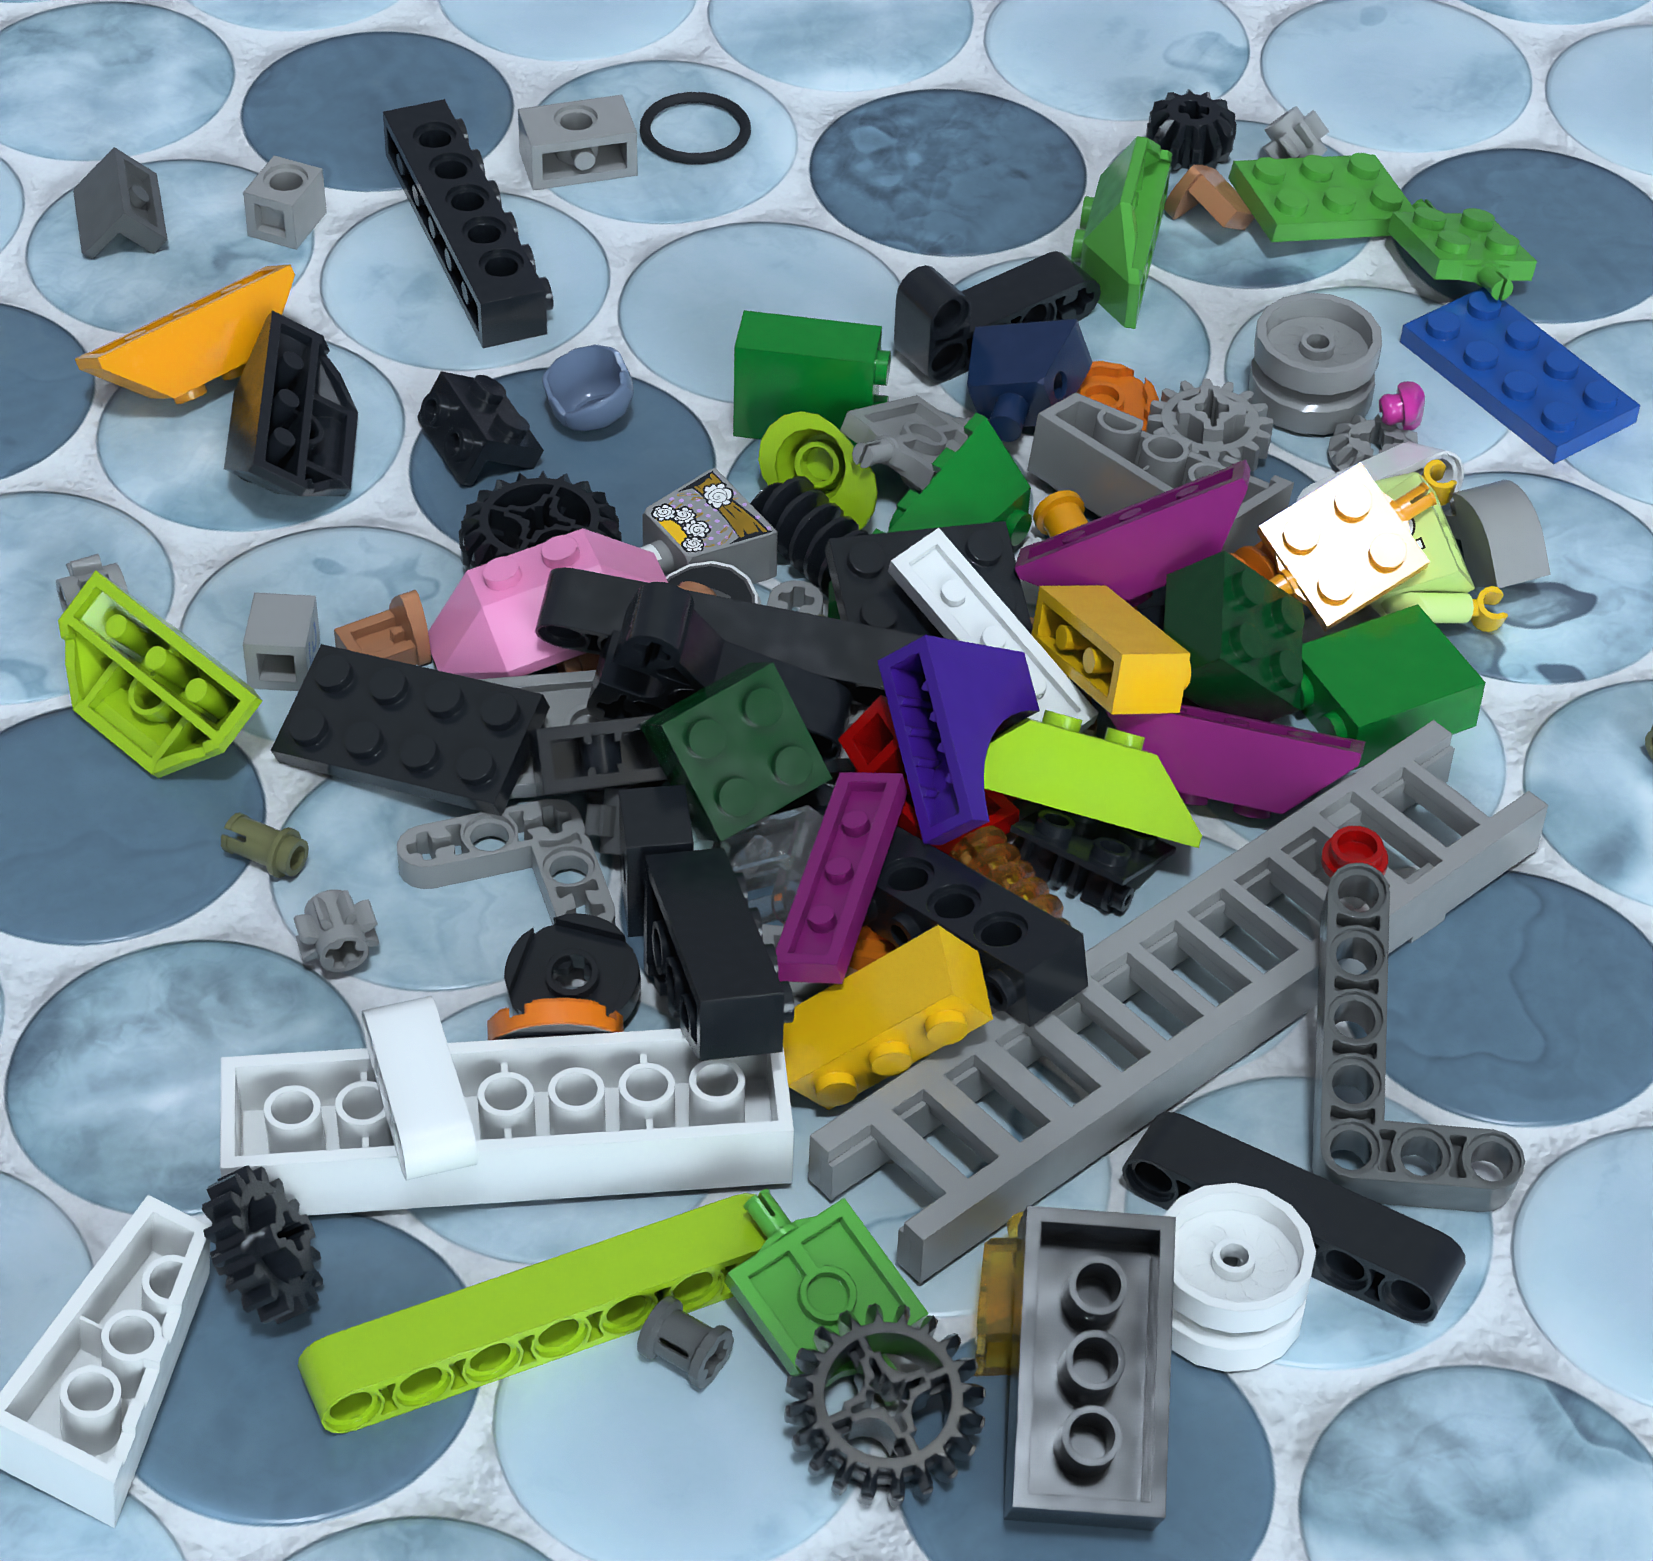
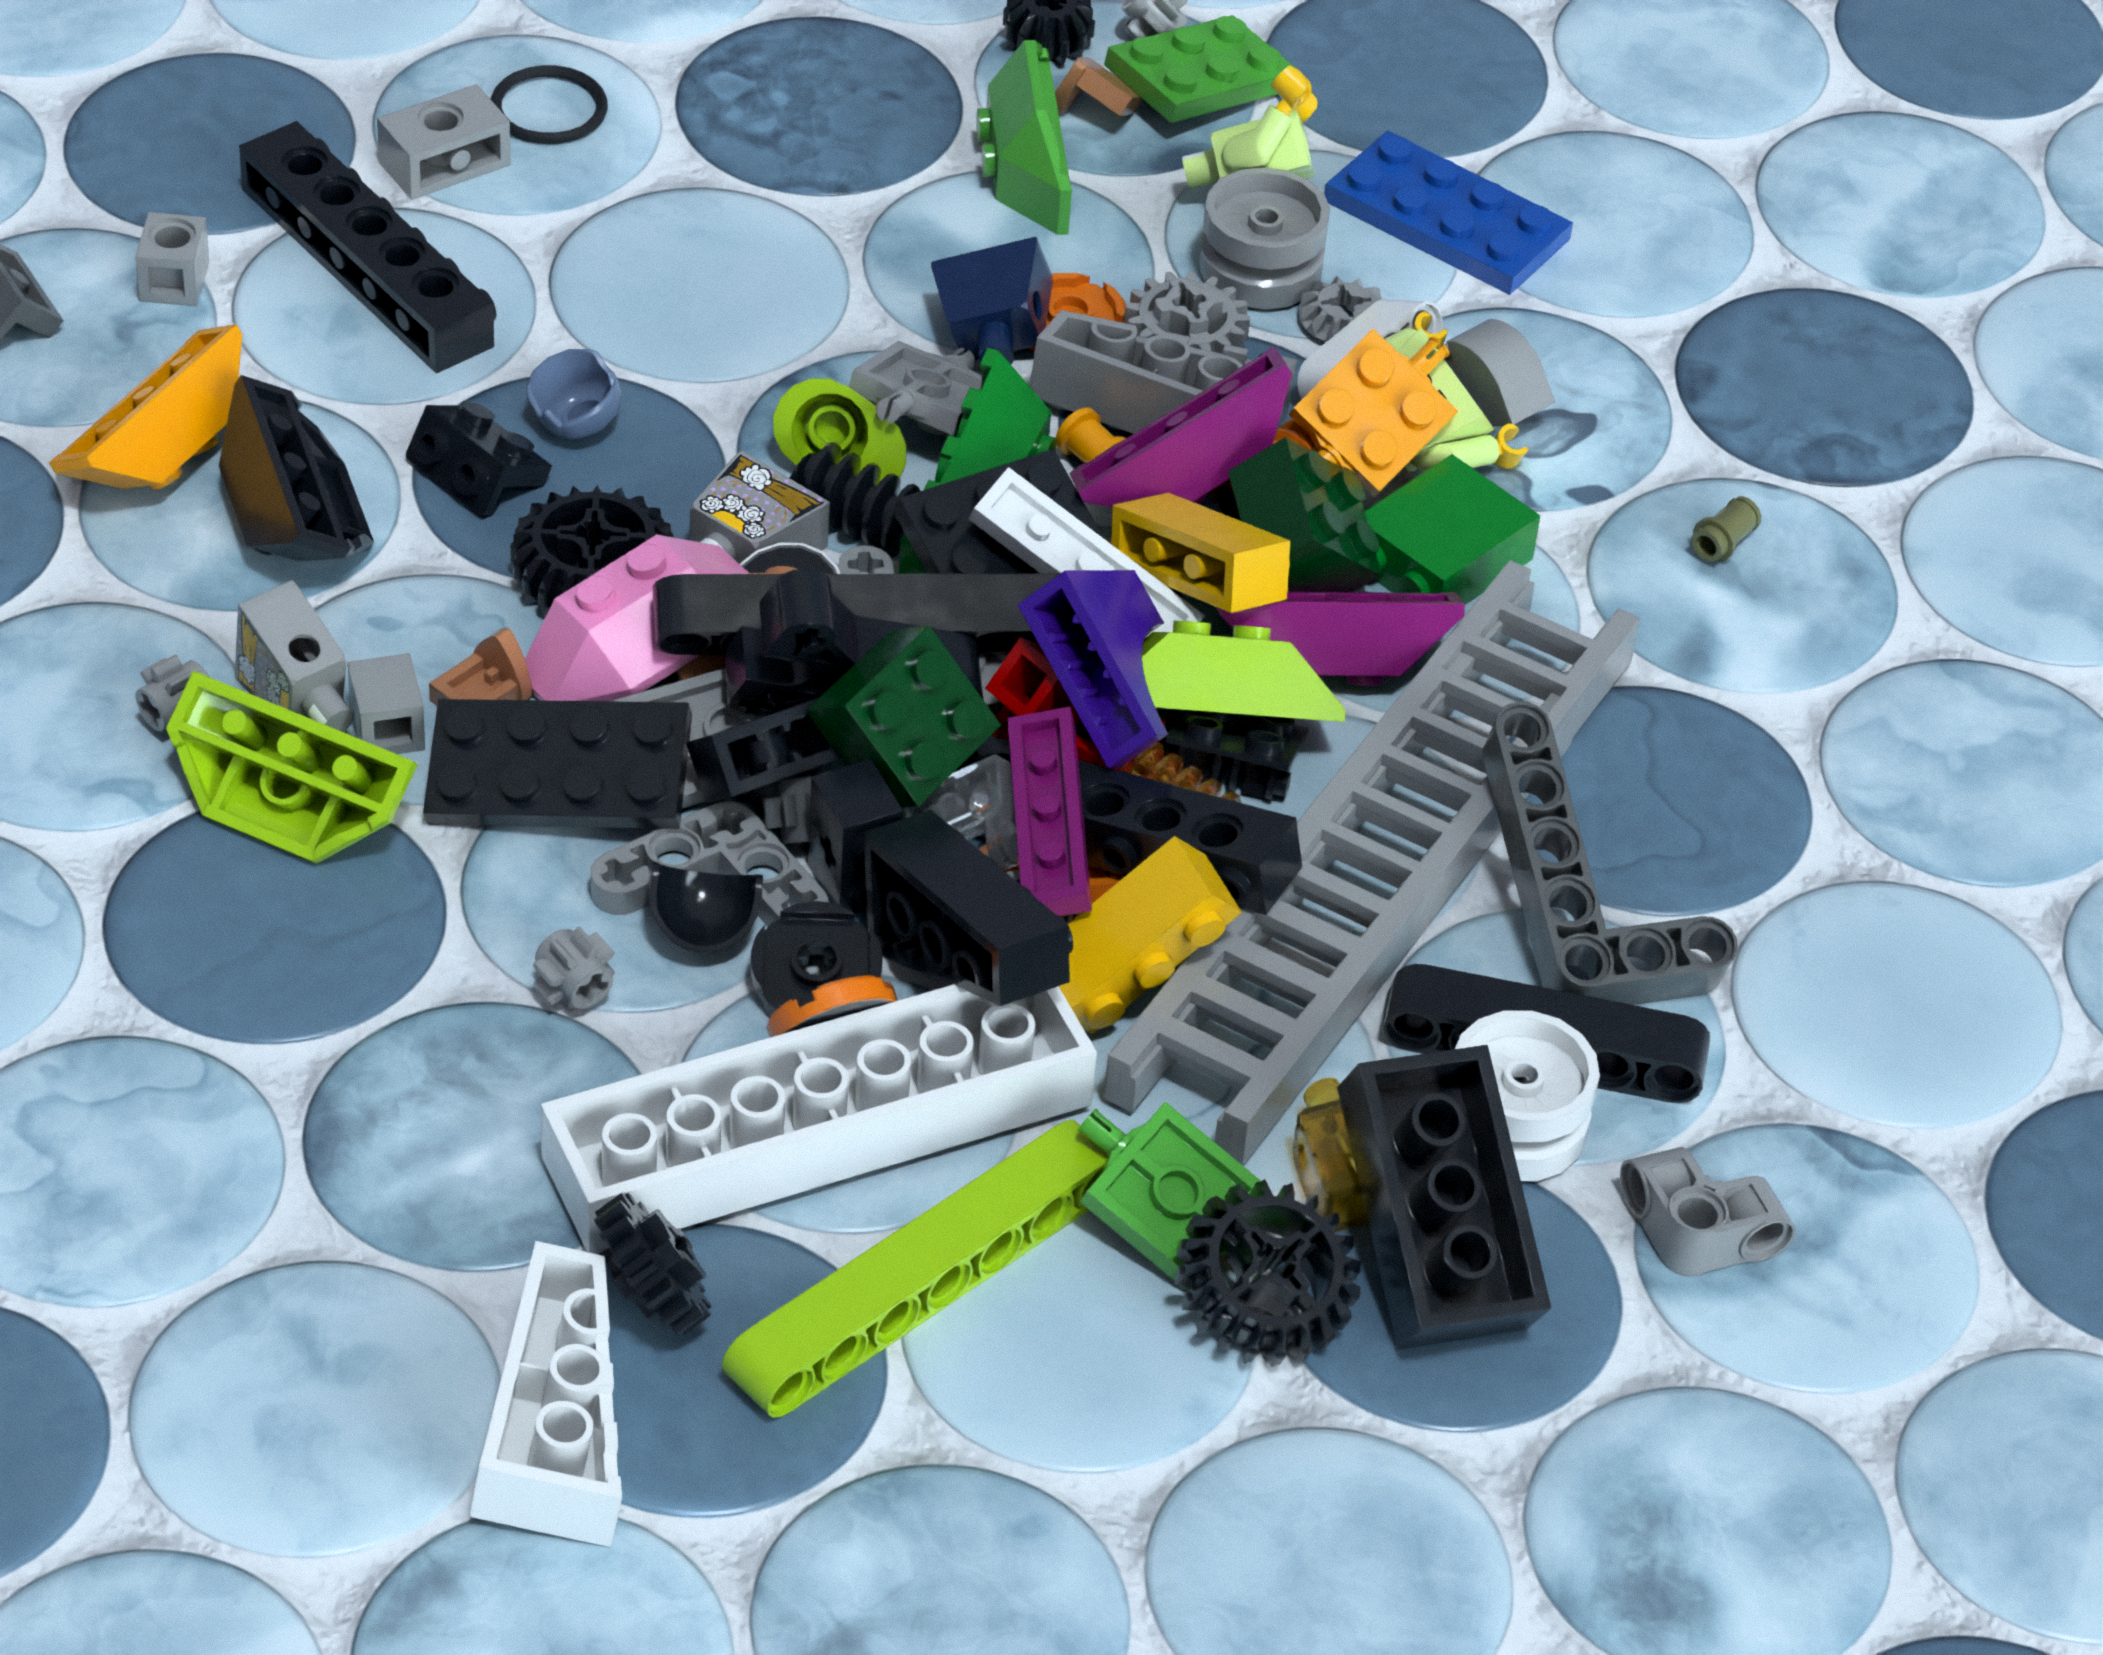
camera: 20 degrees left, 0 degrees up
(210, 606) = (291, 656): none -> light grey torso
(278, 850) = (463, 904): olive pin -> none
(419, 1088) = (749, 1087): white beam -> none
(483, 896) = (703, 908): none -> black helmet
(685, 1342) = (1062, 1263): dark grey bush -> none
(804, 366) = (788, 335): green brick -> none
(939, 321) = (893, 259): black beam -> none
(1352, 267) = (1270, 142): none -> yellowish green torso
(1354, 845) = (1489, 695): red plate -> none
(1404, 406) = (1362, 264): dark pink arm -> none
(1410, 1464) = (1699, 1221): none -> light grey piece
(1463, 247) = (1364, 96): bright green plate -> none

